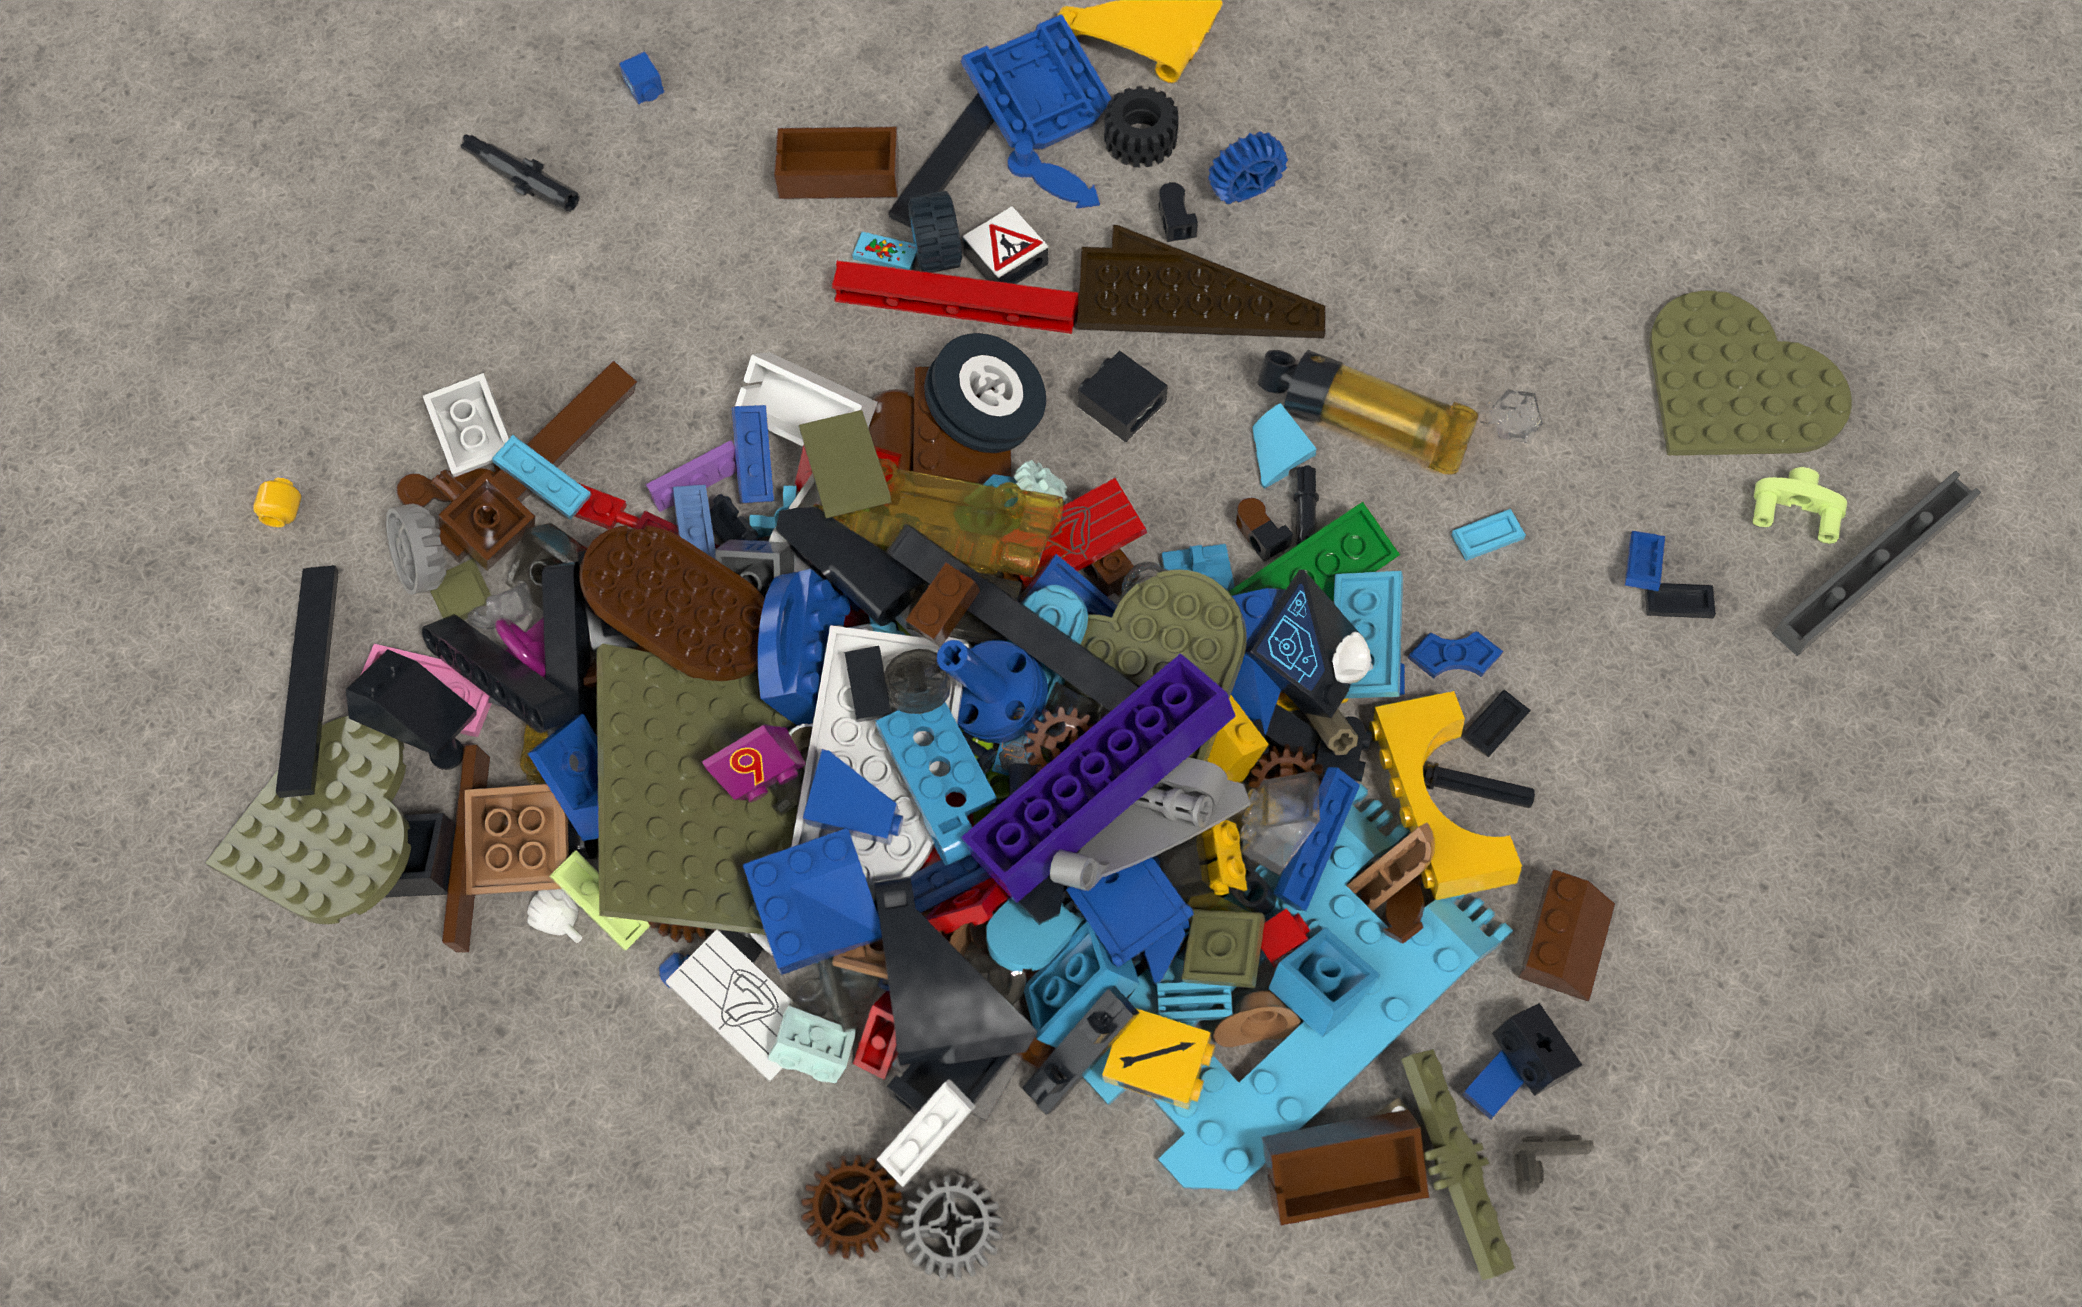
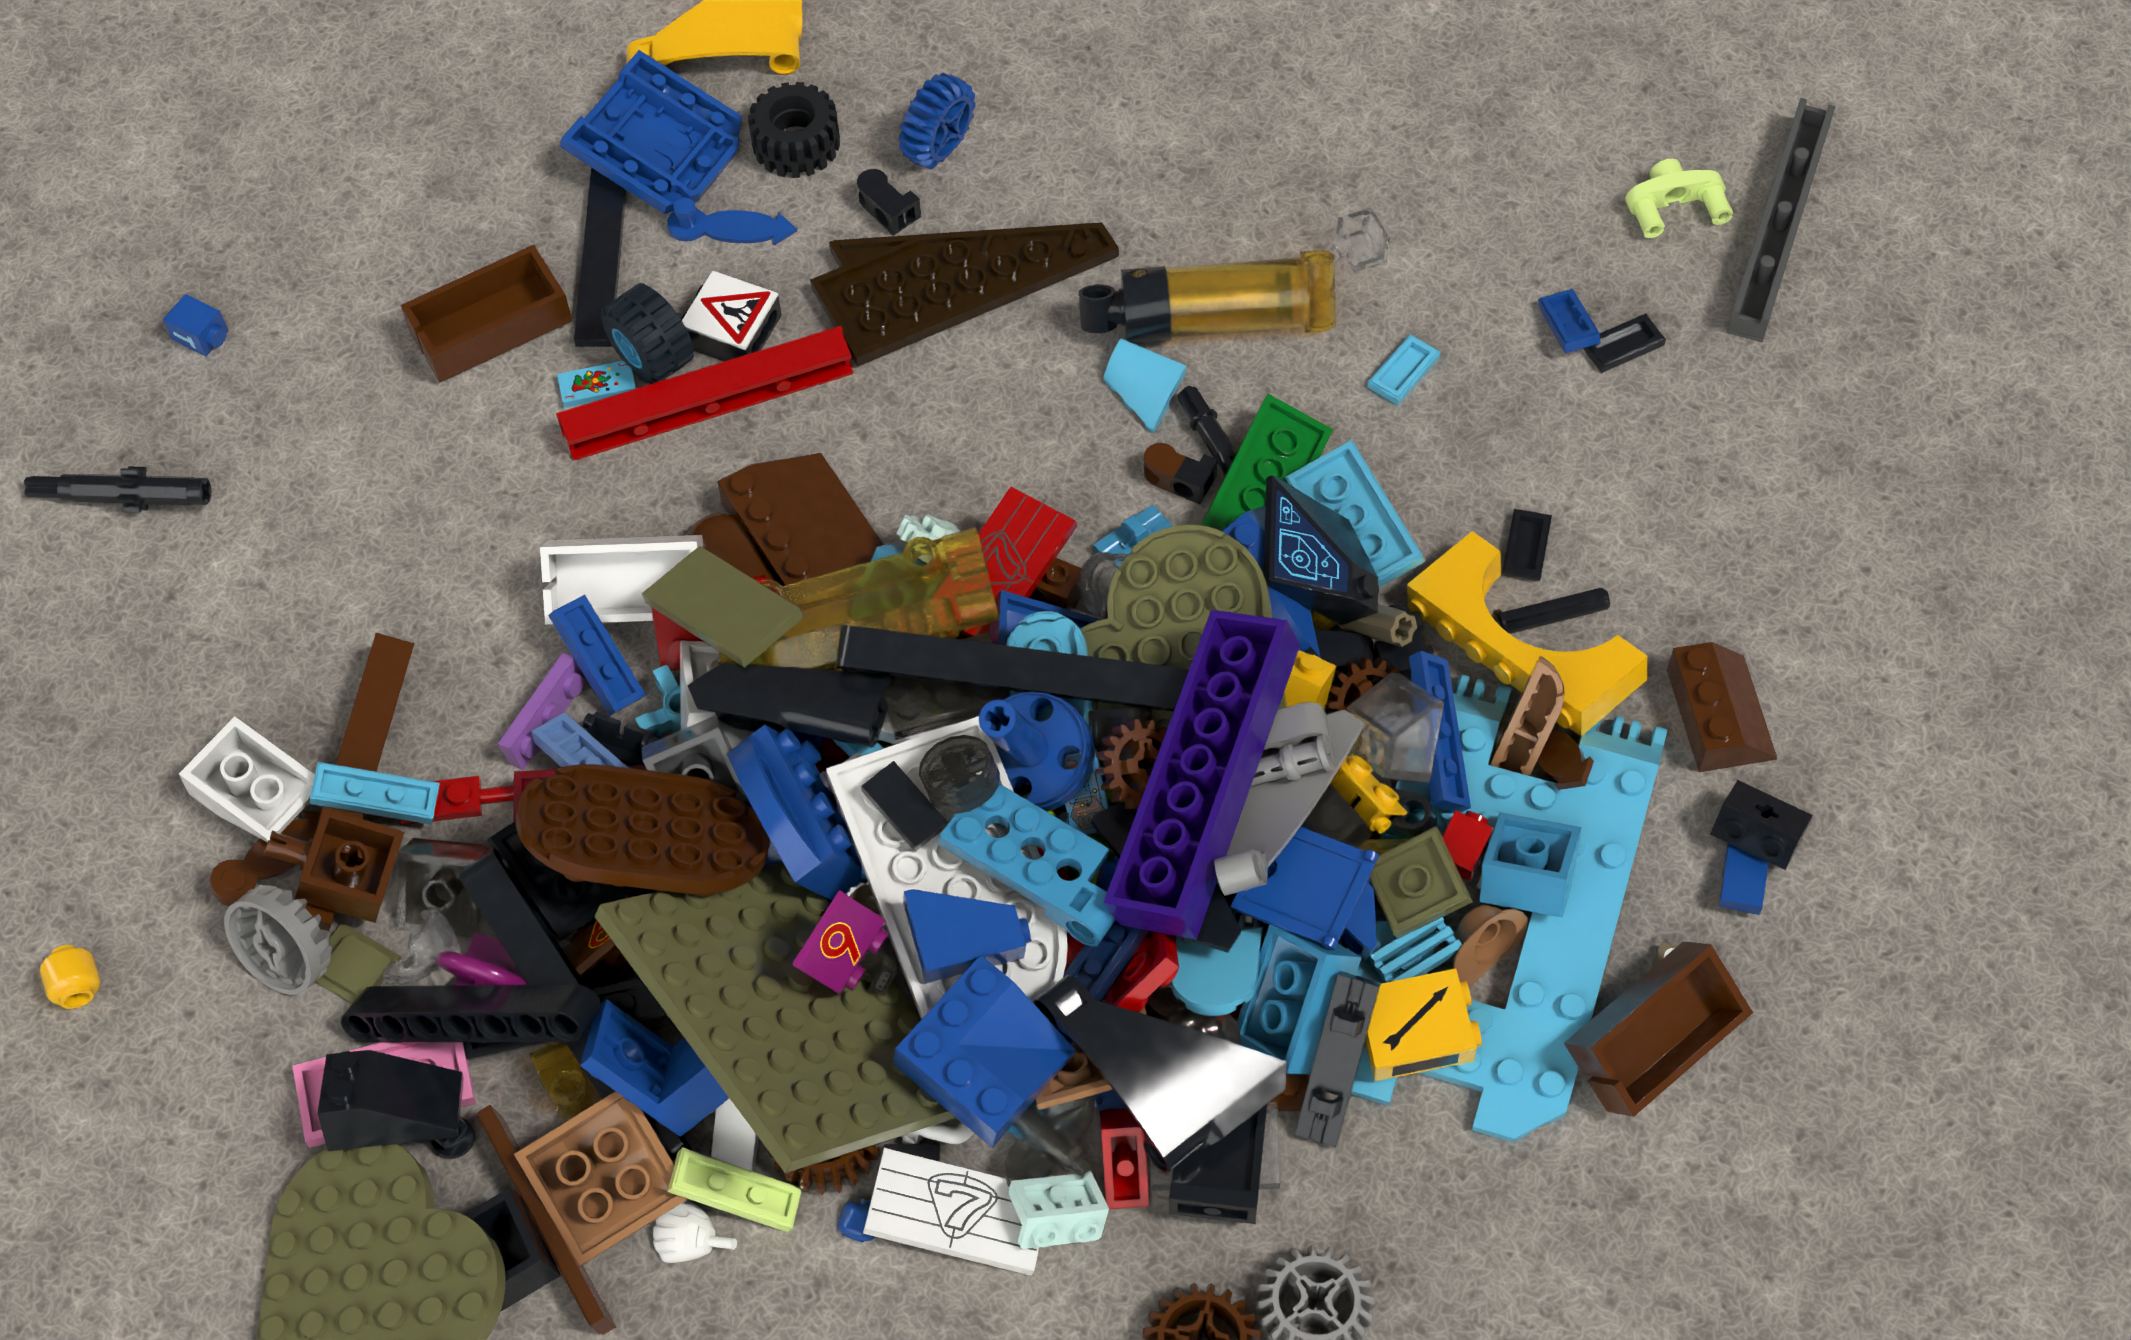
camera: 30 degrees left, 5 degrees down
(307, 683) = (244, 1143): black tile -> none
(926, 1133) = (1238, 1221): white tile -> none
(943, 605) = (938, 684): reddish brown brick -> none
(971, 368) = (777, 465): black wheel -> none
(1122, 395) = (951, 409): black piece -> none
(1352, 659) = (1366, 541): white piece -> none
(1439, 655) = (1431, 507): blue tile -> none
(1458, 1164) = (1759, 968): olive hinge -> none
(1529, 1171) = (1813, 931): clear smoke bracket -> none
(1736, 387) = (1546, 115): olive plate -> none

